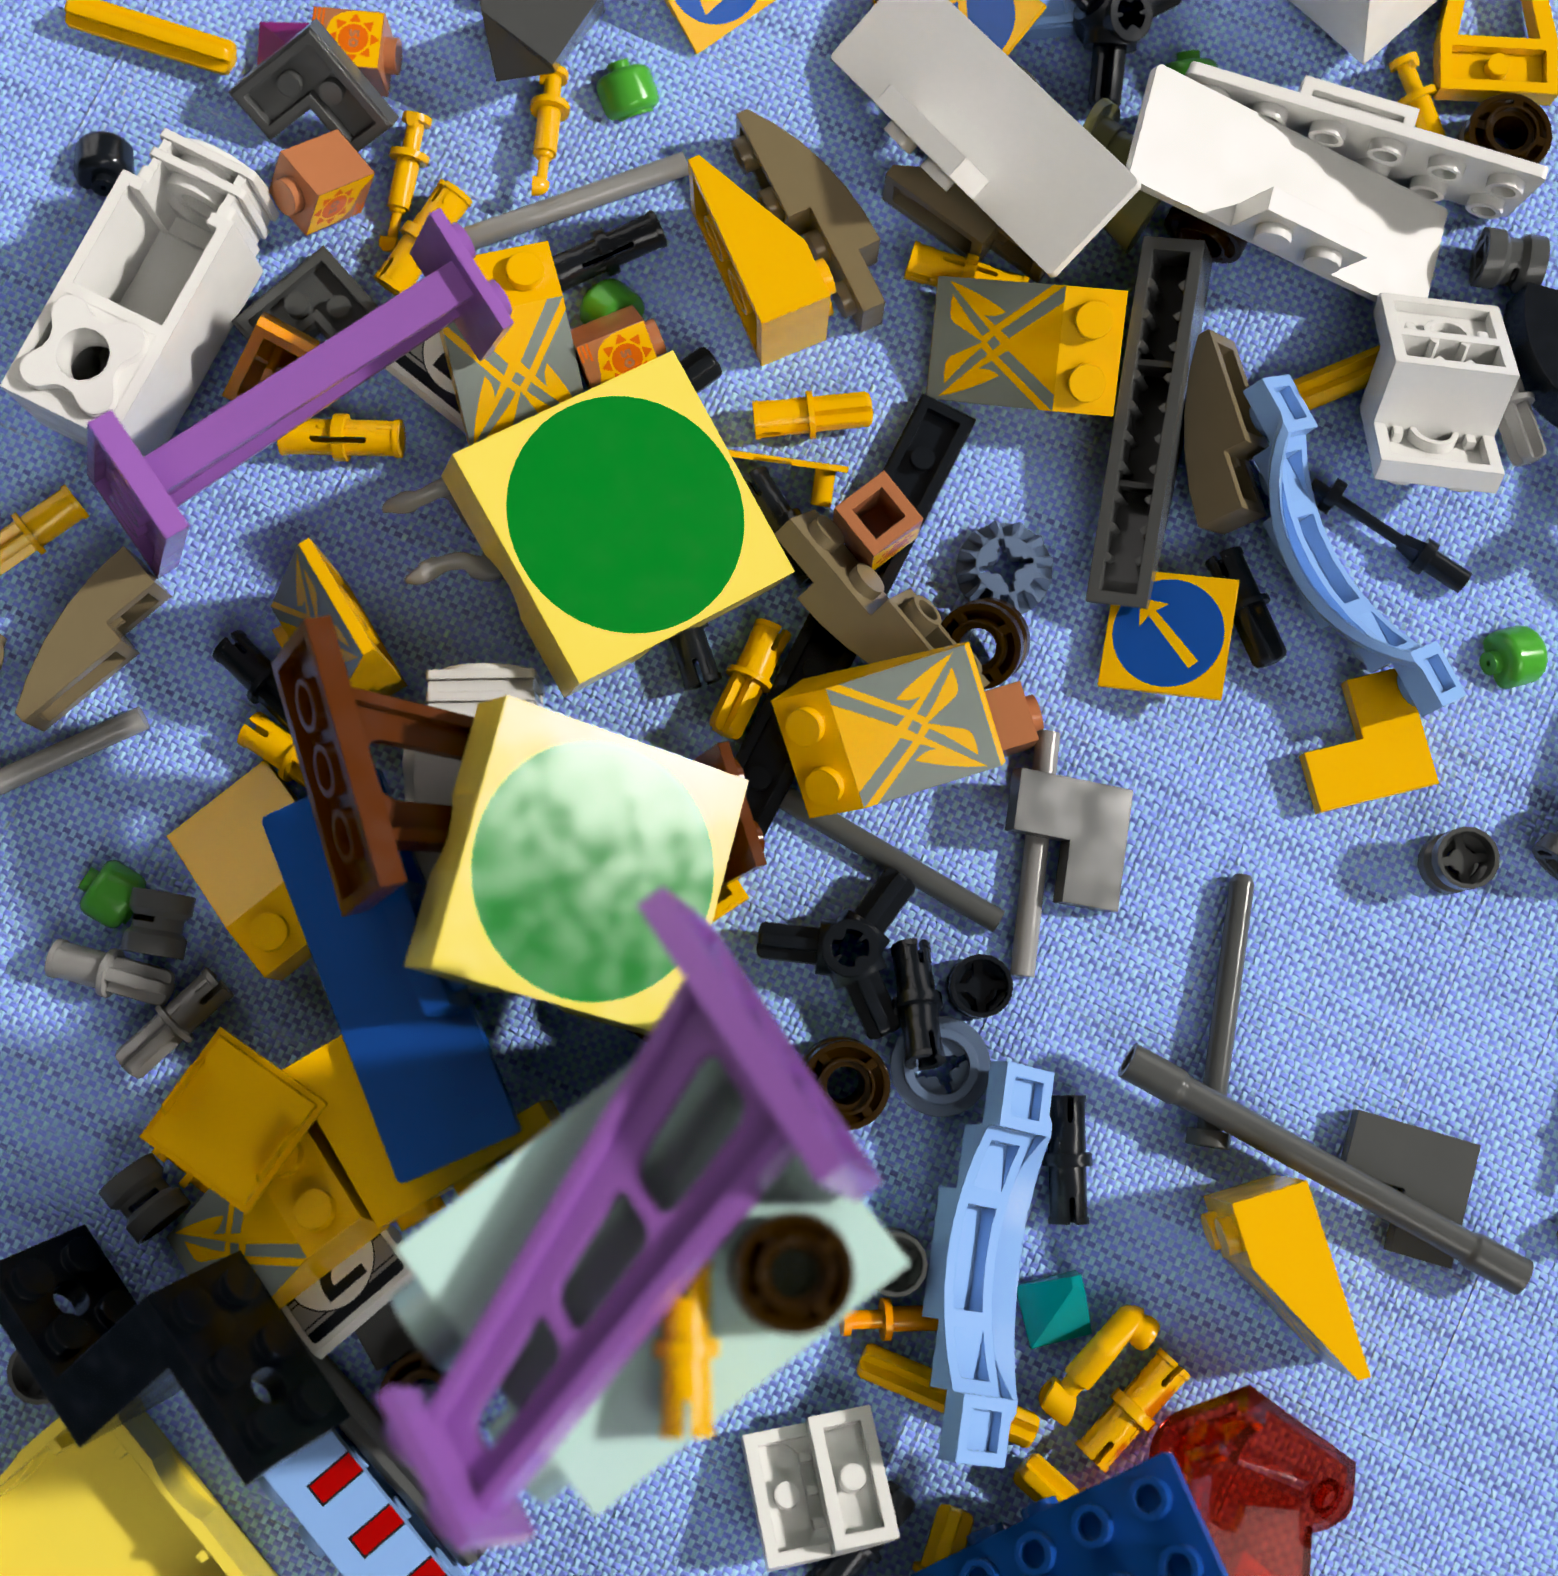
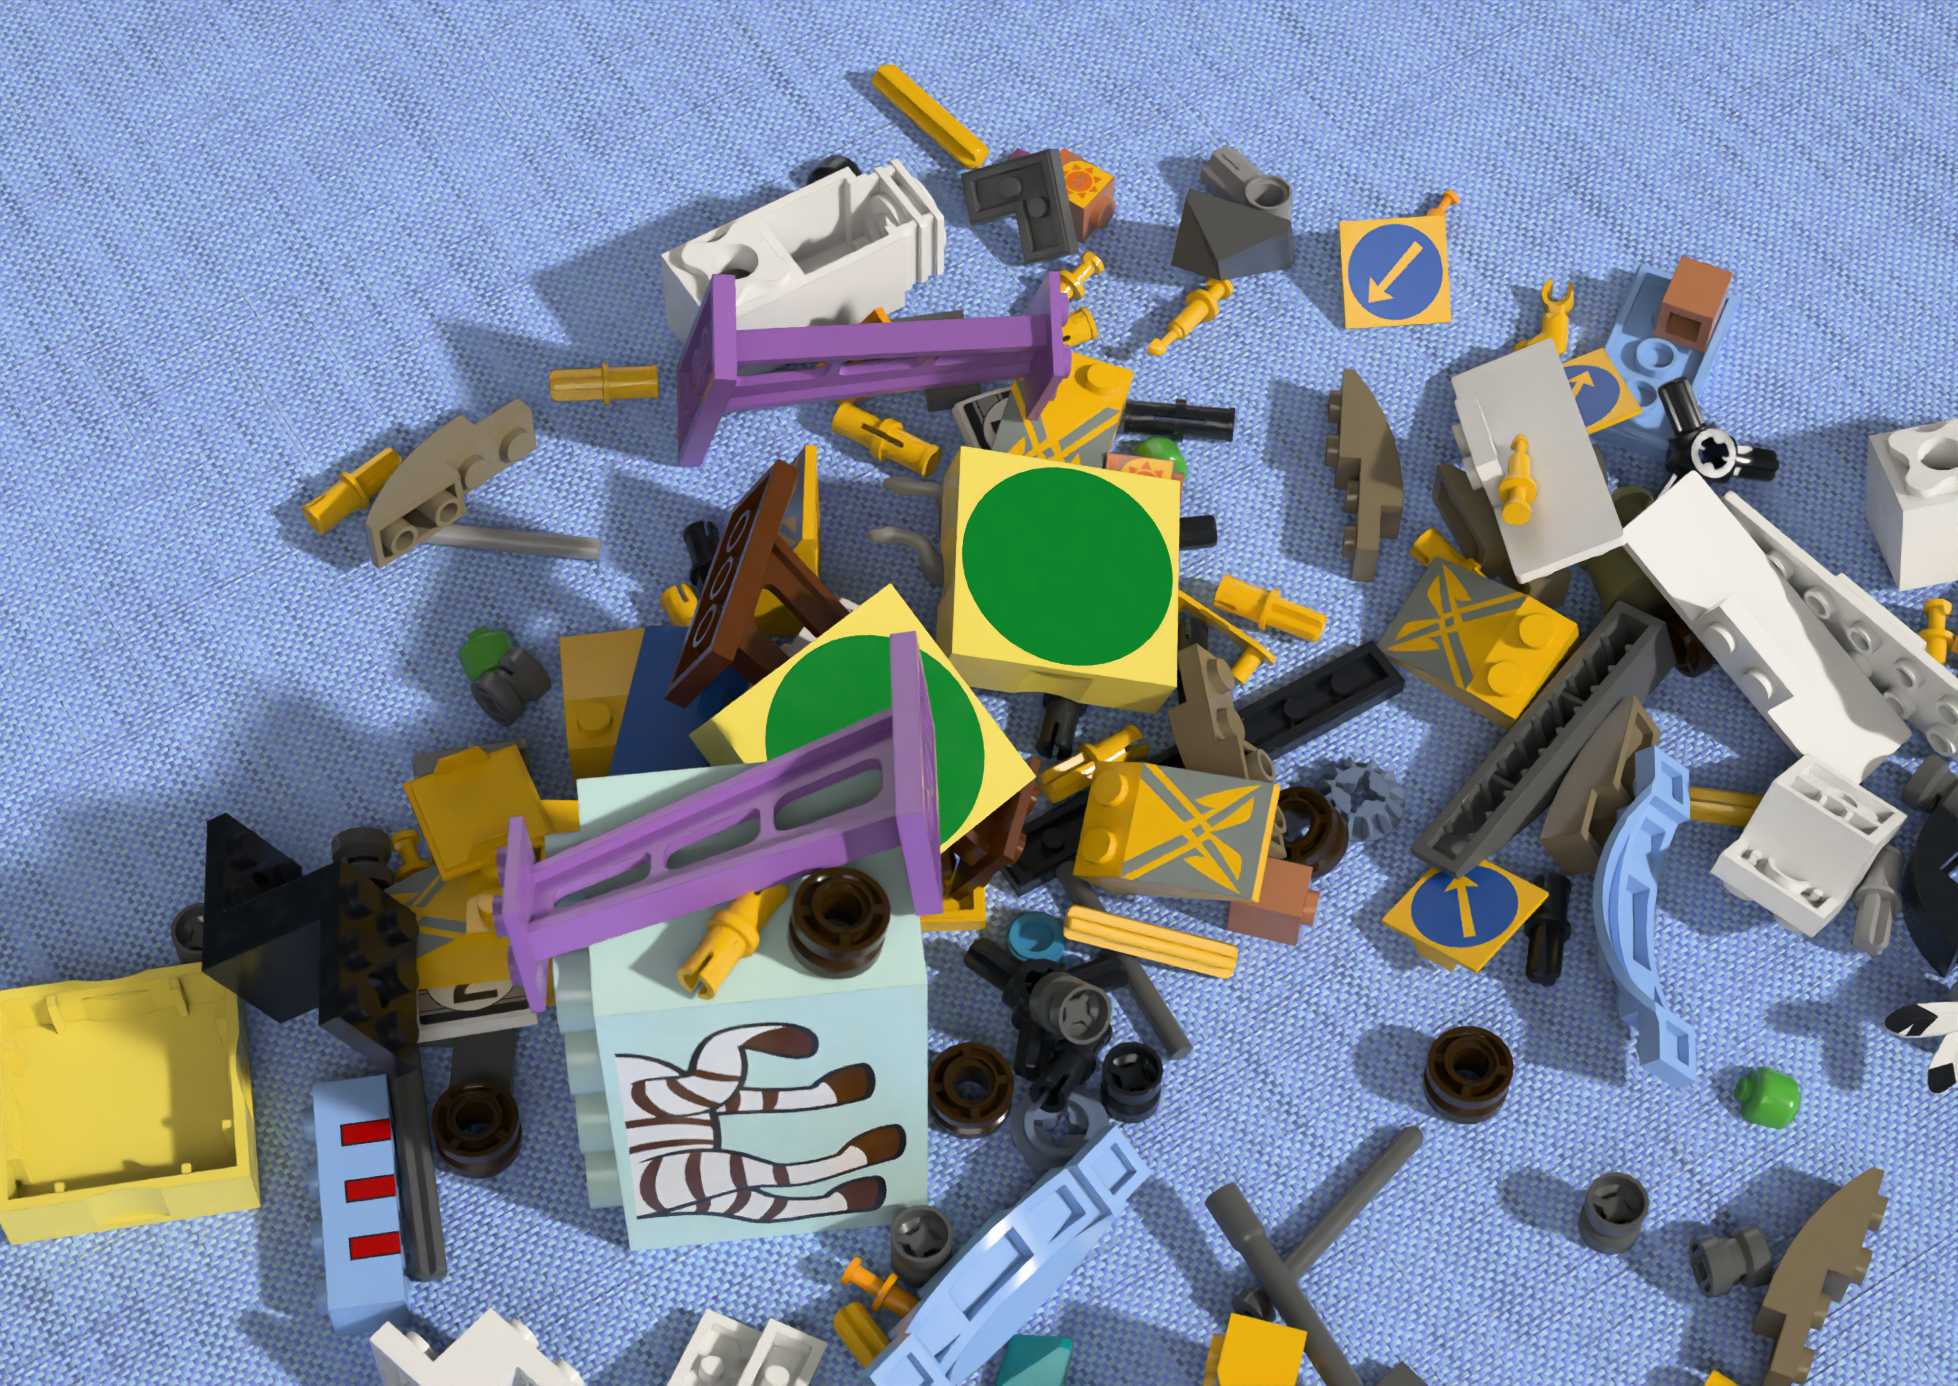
camera: 35 degrees right, 25 degrees down
(90, 639) = (599, 473): dark tan slope -> none
(109, 972) = (449, 701): light grey axle -> none
(321, 182) = (989, 263): nougat brick -> none
(578, 200) = (1198, 379): light grey bar -> none
(627, 90) = (1272, 325): bright green piece -> none
(764, 266) = (1298, 493): yellow slope -> none
(804, 889) = (1035, 937): none -> dark azure tile
(877, 521) = (1268, 691): nougat brick -> none
(887, 966) = (1070, 1008): none -> dark grey wheel
(911, 836) = (1150, 941): none -> yellow axle
(995, 172) = (1517, 488): none -> yellow piece
(1033, 872) = (1246, 1020): light grey bar -> none
(1067, 1161) = (1121, 1259): black pin -> none
(1092, 830) = (1305, 1013): tile -> none
(1290, 794) = (1470, 1050): none -> dark brown wheel
(1384, 758) = (1590, 1111): yellow tile -> none
(1422, 555) = (1730, 973): black piece -> none

